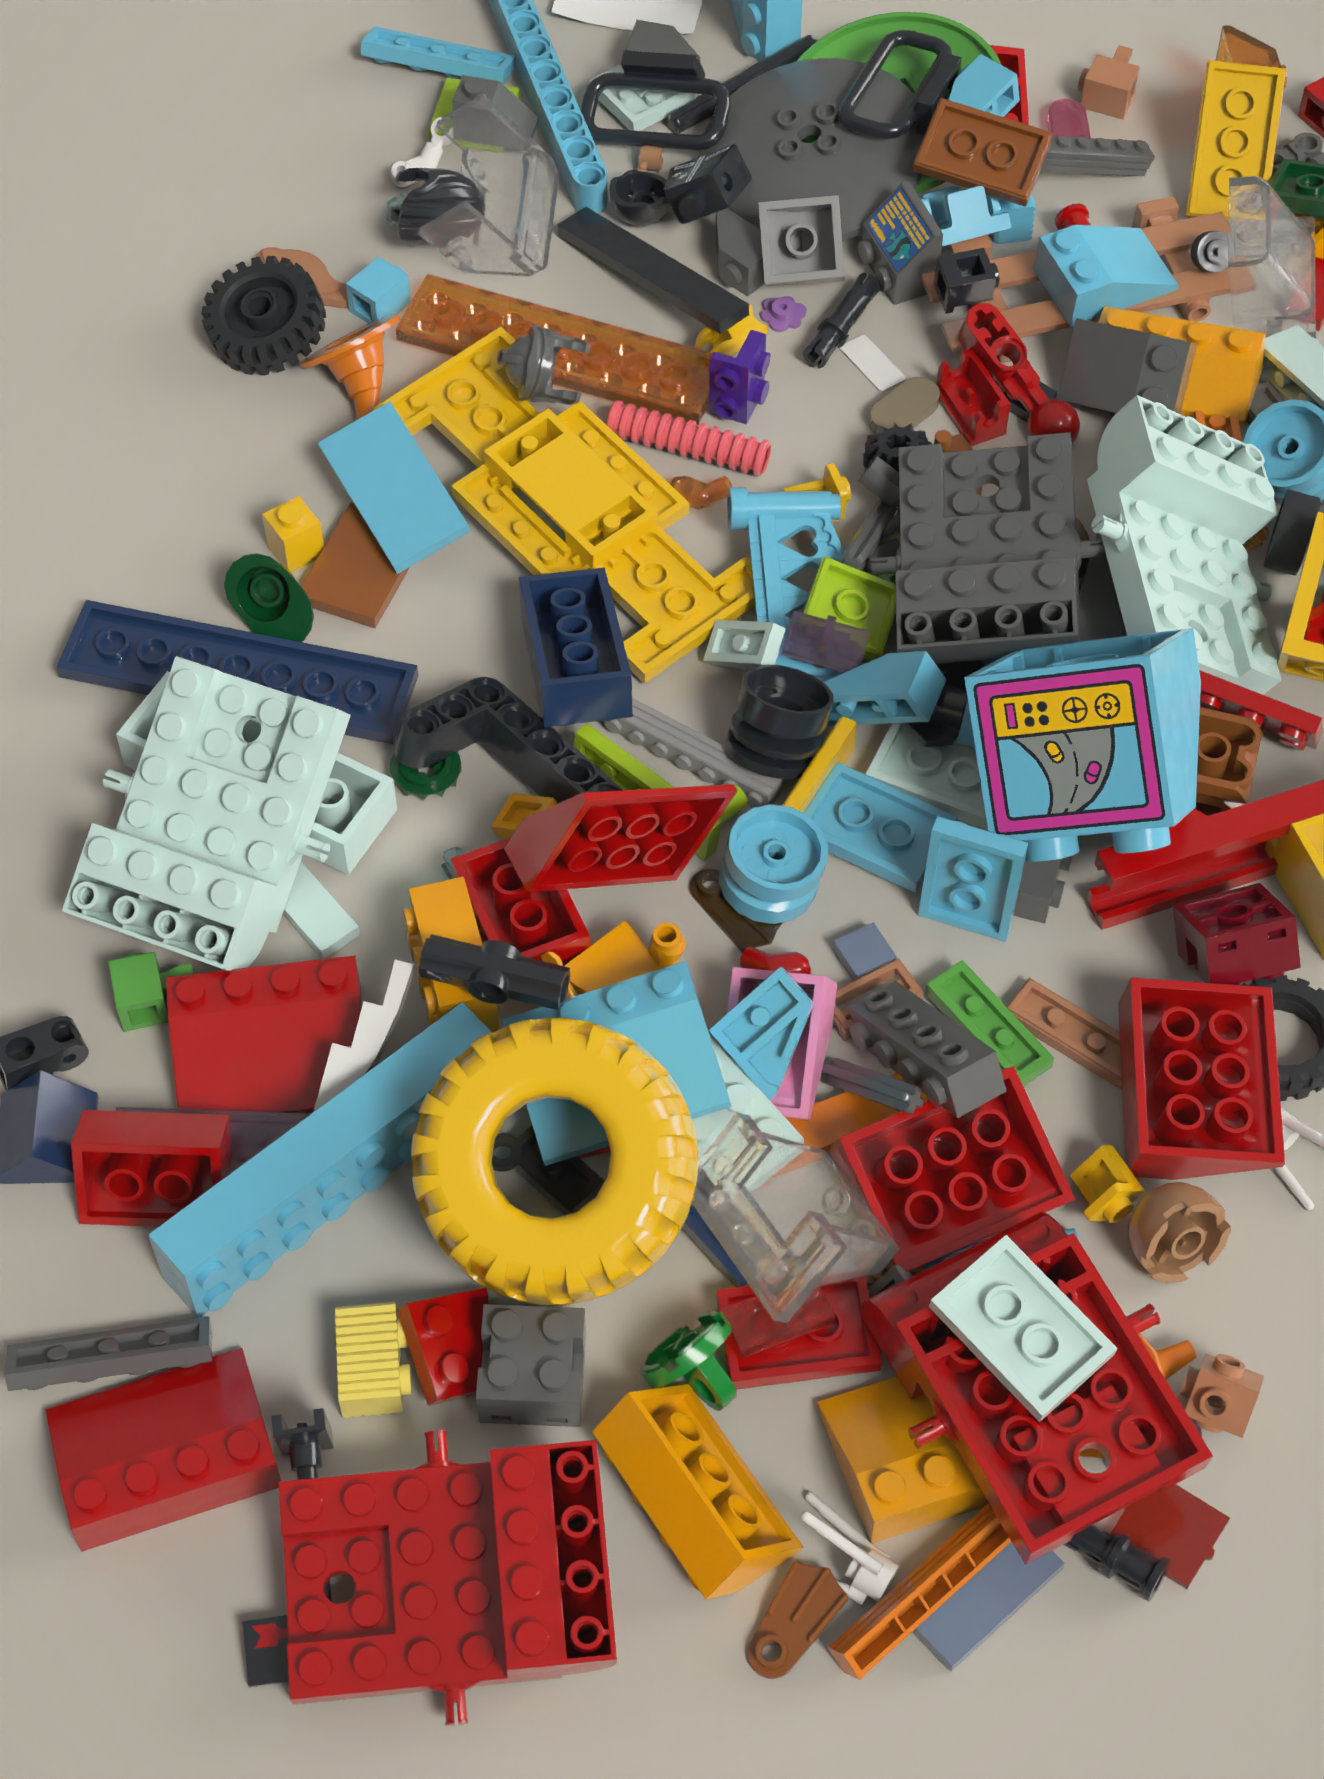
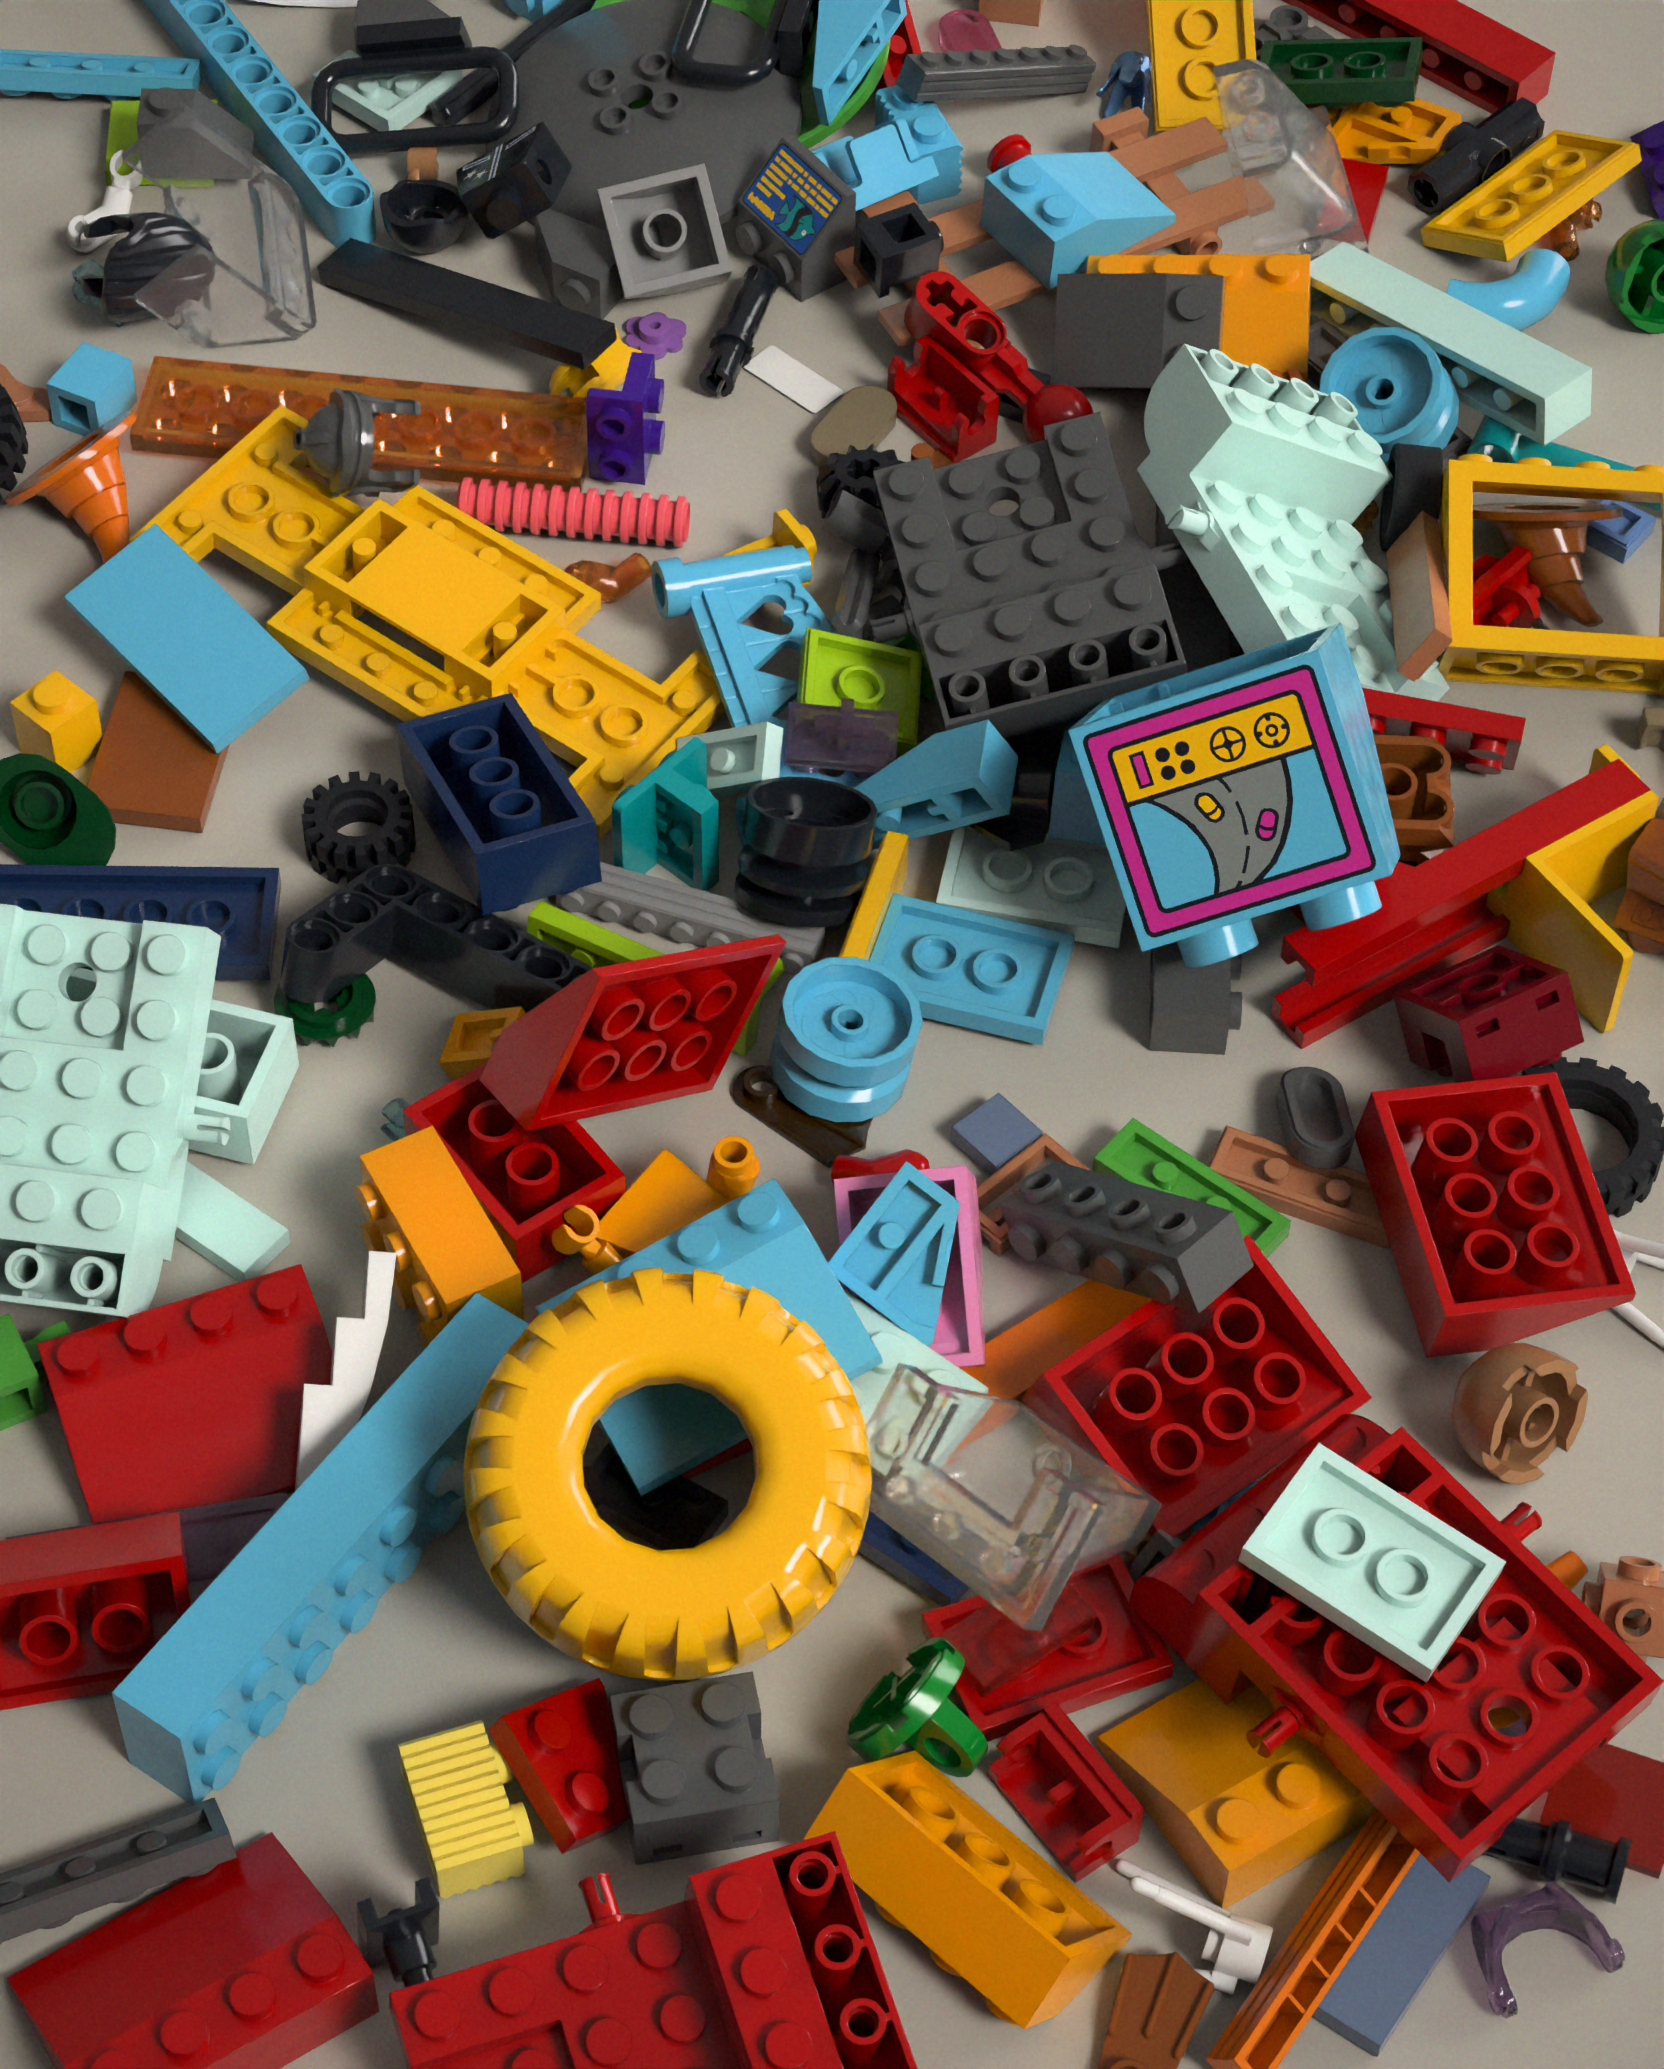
camera: 15 degrees left, 5 degrees down
(475, 627) = (354, 803): none -> black tyre
(494, 972) = (515, 1240): black piece -> none
(691, 680) = (670, 820): none -> teal bracket
(782, 1438) = (1066, 1792): none -> red hinge
(873, 1085) = (1064, 1300): dark grey axle -> none
(972, 878) = (1125, 1005): medium azure plate -> none
(983, 150) = (881, 78): dark orange tile -> none
(1093, 1593) = (1542, 1909): none -> clear purple helmet
(1094, 984) = (1315, 1118): none -> dark grey tile
(1107, 1185) = (1407, 1372): yellow bracket -> none
(1176, 171) = (1129, 78): none -> flat silver piece
(1210, 251) = (1210, 165): wheel -> none
(1272, 610) = (1418, 597): none -> nougat tile

